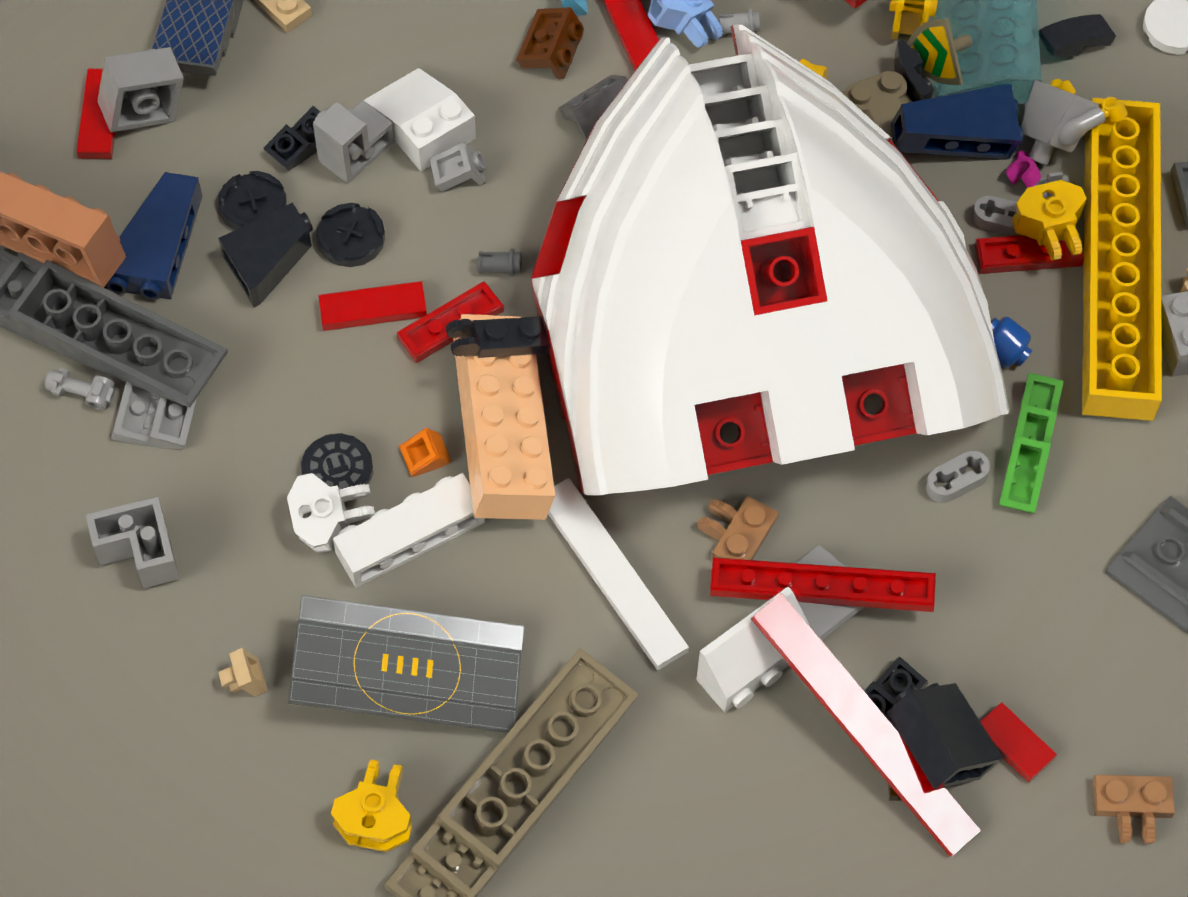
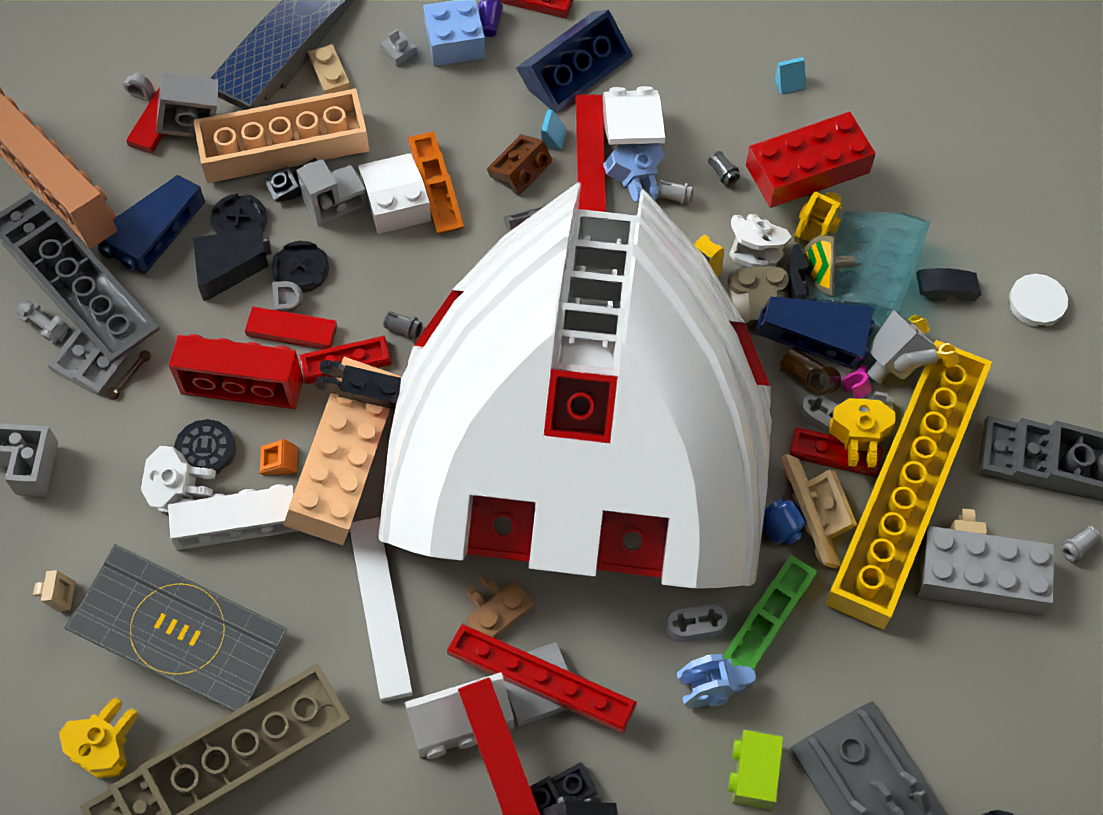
camera: 20 degrees right, 0 degrees up
(63, 84) = (139, 86): none -> light grey tile
(200, 441) = (113, 392): none -> dark brown hinge
(264, 91) = (281, 135): none -> light nougat brick
(342, 370) = (236, 371): none -> red brick
(352, 271) = (286, 296): none -> light grey tile
(439, 62) = (437, 182): none -> orange slope
(457, 166) = (404, 238): light grey bracket -> none
(854, 48) = (757, 239): none -> white hinge
(966, 174) = (808, 372): none -> dark brown piece
(1003, 527) = (713, 680): none -> light blue hinge
(1042, 312) = (823, 507): none -> tan bracket
(1083, 602) = (756, 770): none -> lime brick

